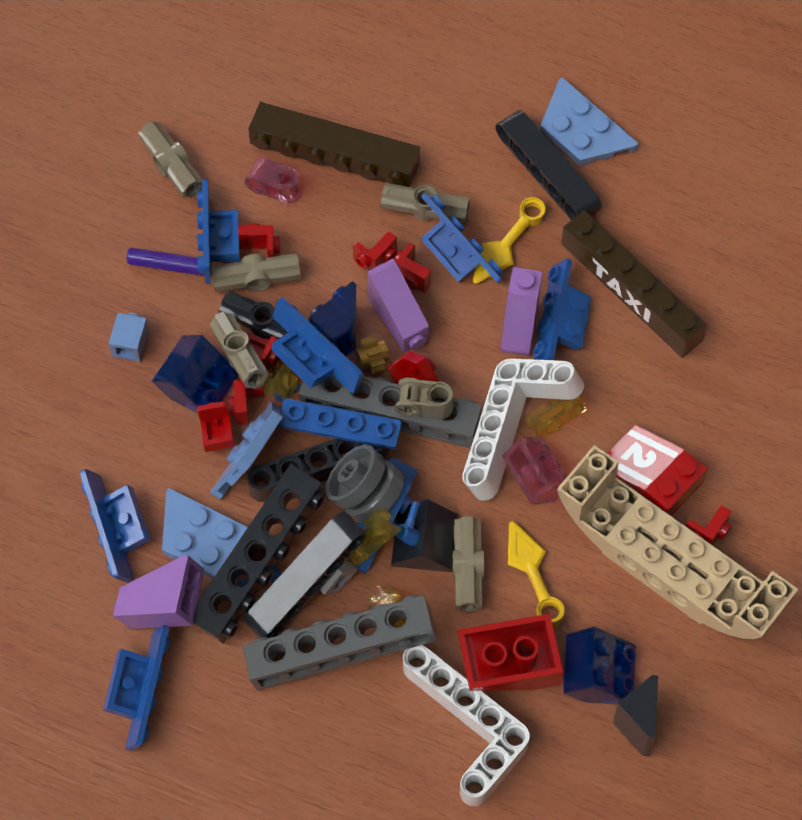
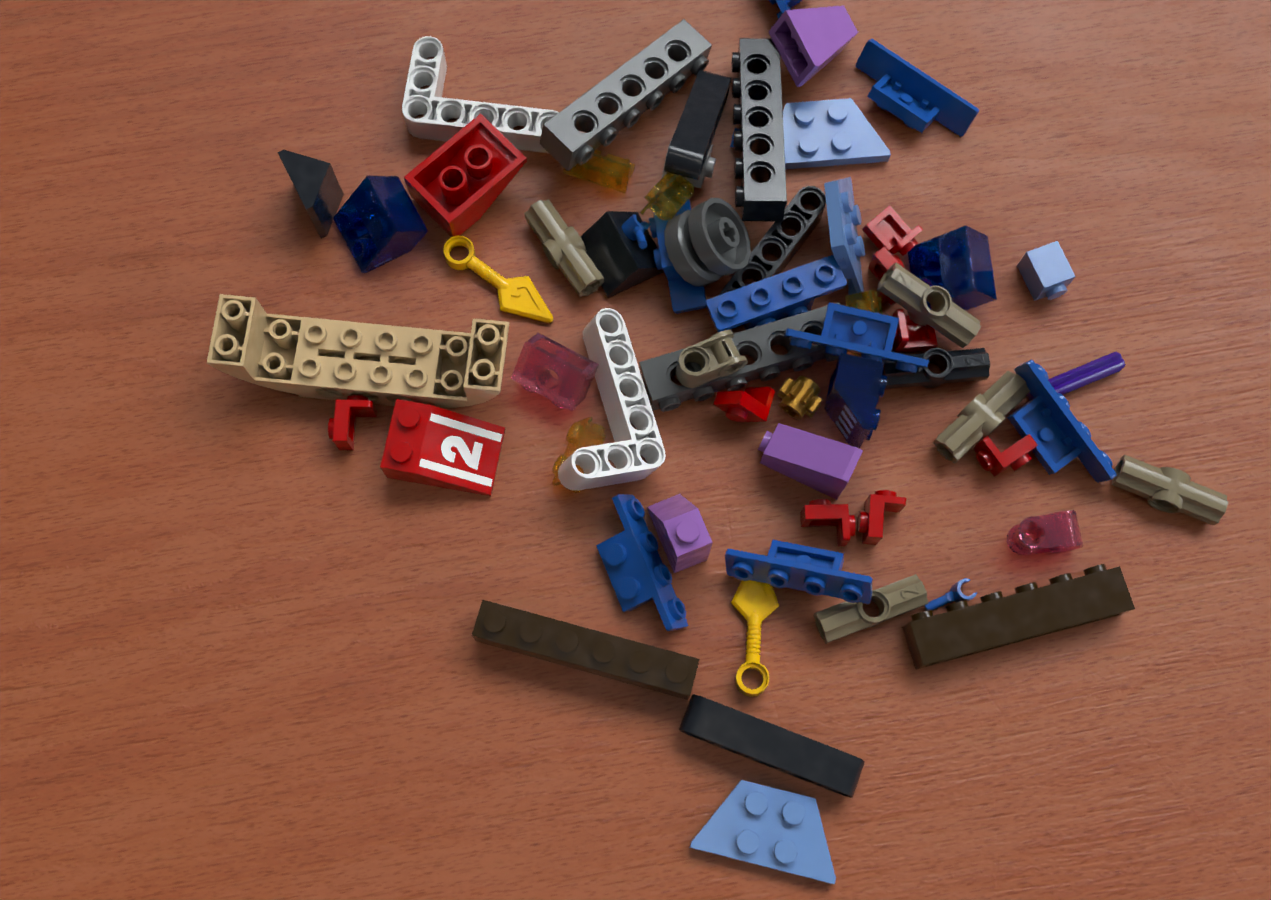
camera: 145 degrees right, 10 degrees up
(359, 184) = (954, 595): none -> blue hand

